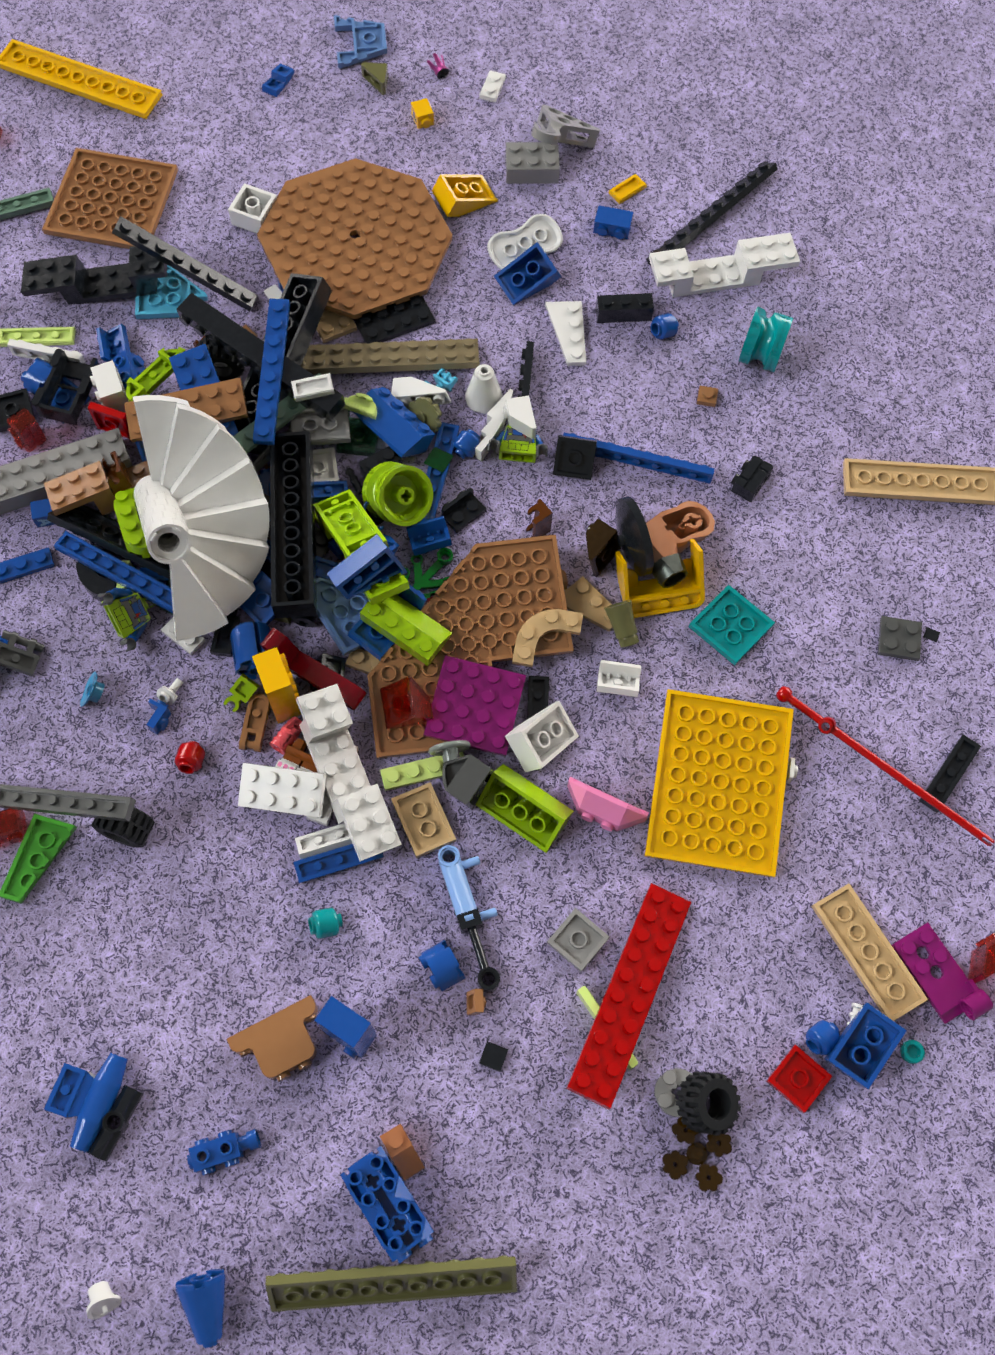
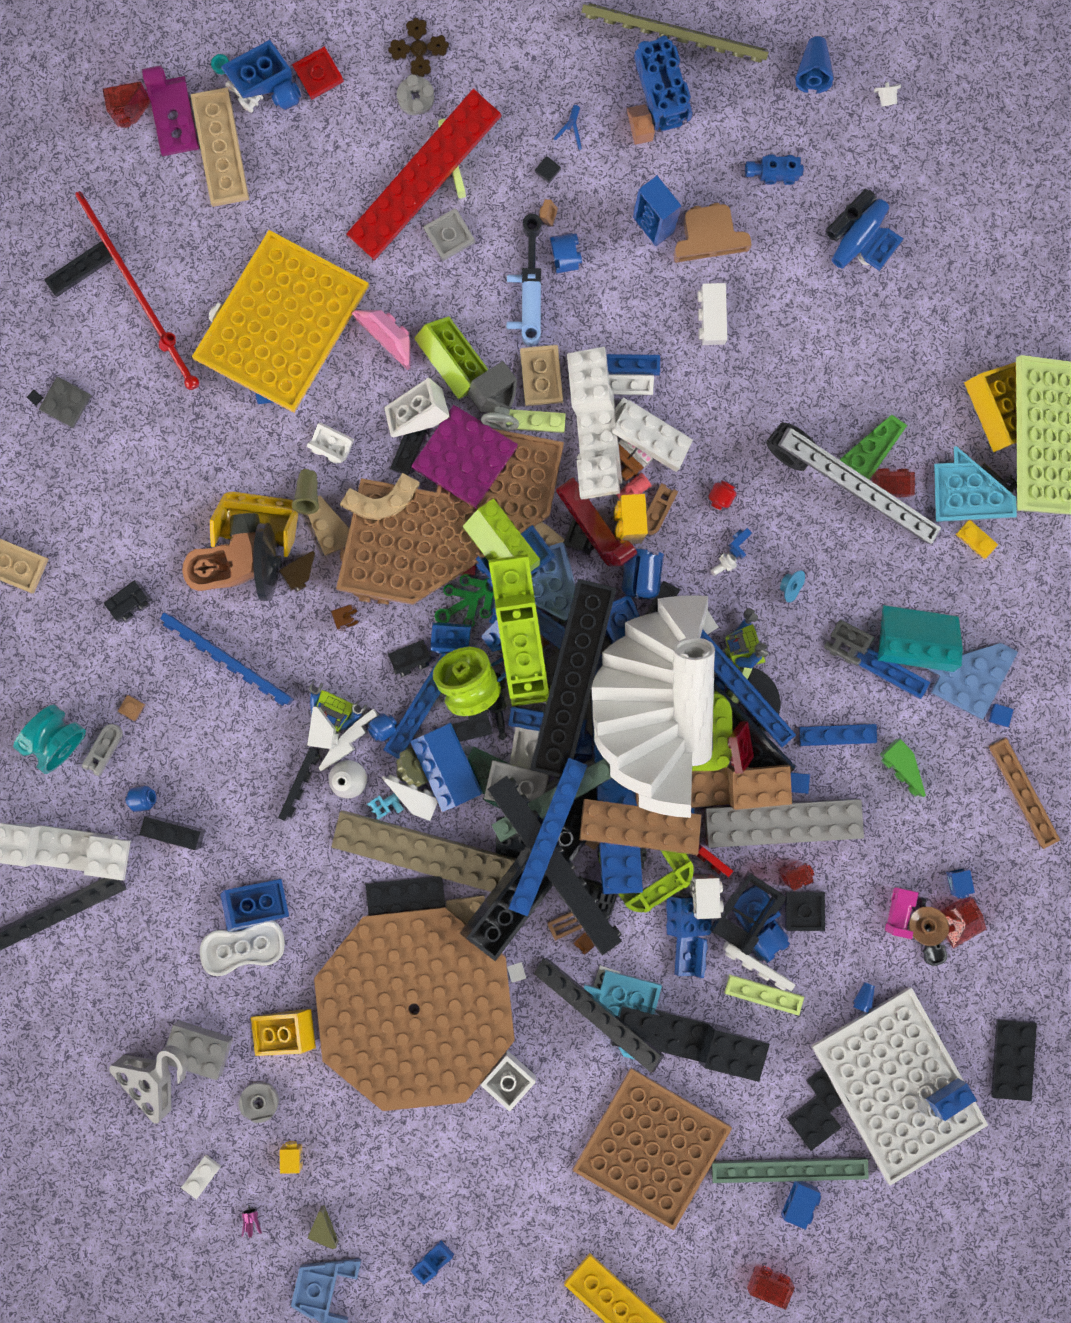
camera: 160 degrees left, 20 degrees up
(106, 513) = (741, 747): none -> dark red plate
(117, 474) = (721, 790): reddish brown hinge -> none
(242, 690) = (662, 540): lime plate -> none
(251, 948) = (713, 314): none -> white brick
(312, 387) = (514, 804): white tile -> none
(325, 923) = (648, 314): teal head -> none
(361, 404) = (471, 791): yellowish green tile -> none
(365, 567) = (523, 587): blue wedge -> none
(405, 704) = (525, 471): clear red slope -> none
(438, 459) = (415, 718): dark green sticker -> none
(463, 152) = (253, 1111): none -> light grey plate
(485, 1122) = (572, 121): none -> blue plant
(569, 330) = (235, 833): white wing -> none
(574, 457) = (286, 675): black plate -> none
(613, 222) = (142, 943): blue brick -> none
(627, 188) = (109, 987): yellow tile -> none
(716, 356) = (103, 748): none -> light grey plate
(722, 1107) = (396, 72): black tyre -> none
(731, 624) = (209, 463): teal plate -> none

